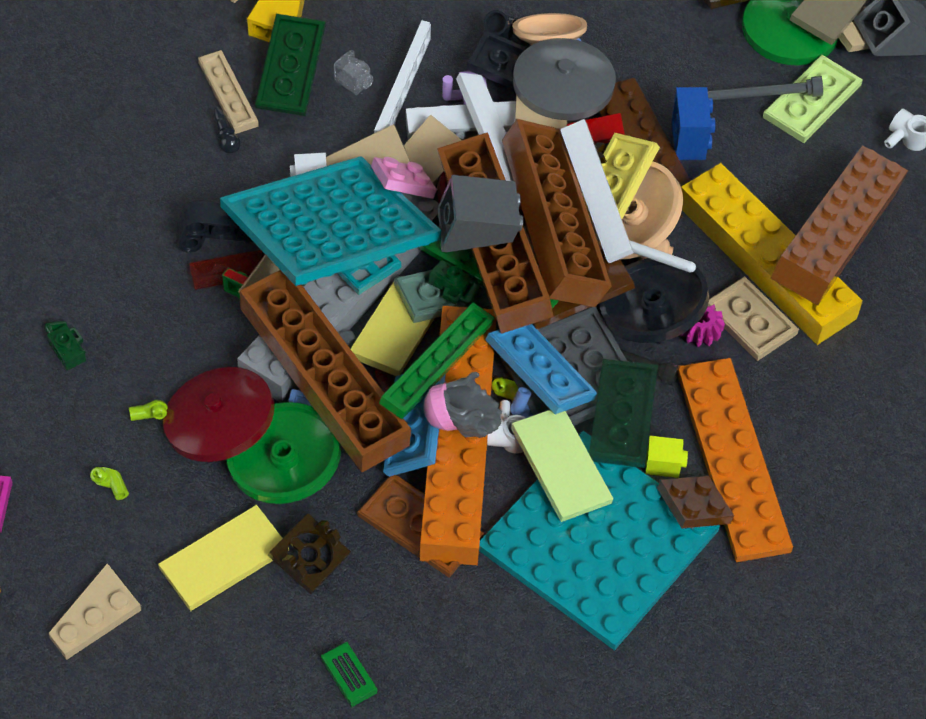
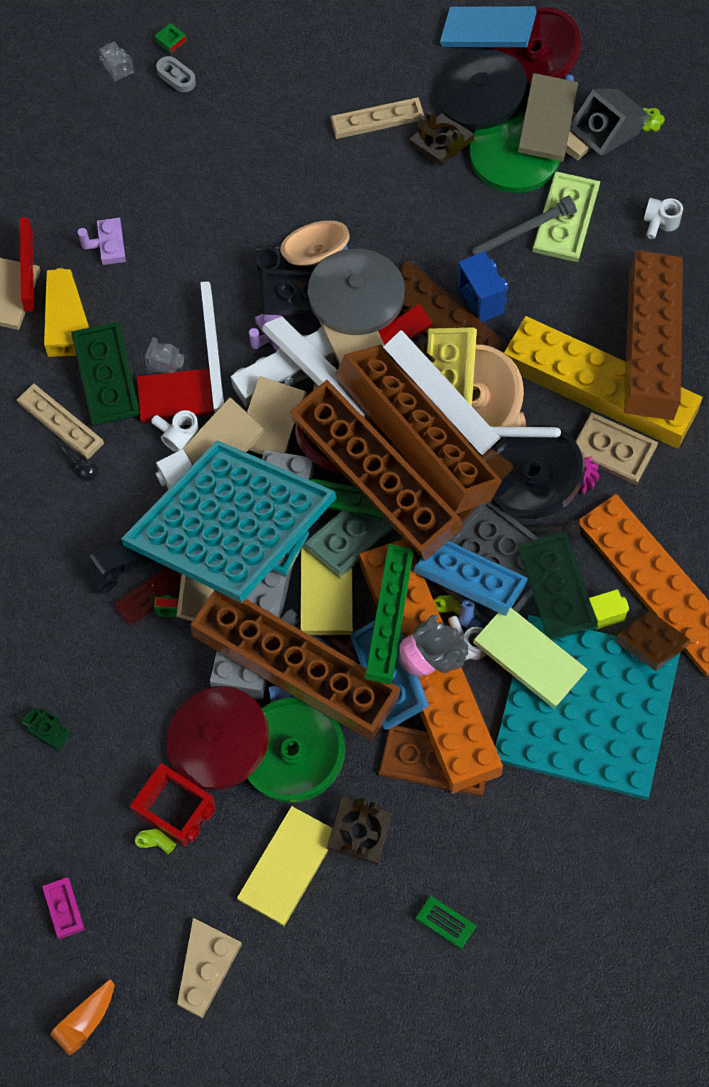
camera: 20 degrees left, 10 degrees up
(133, 435) = (153, 789): none -> red window
(155, 409) = (158, 756): lime arm -> none
(337, 137) = (174, 435): none -> white piece
(344, 109) = (175, 392): none -> red tile
(403, 177) = (267, 448): bright pink plate -> none
(454, 282) = (358, 527): dark green piece -> none
(478, 213) = (361, 464): dark grey slope -> none

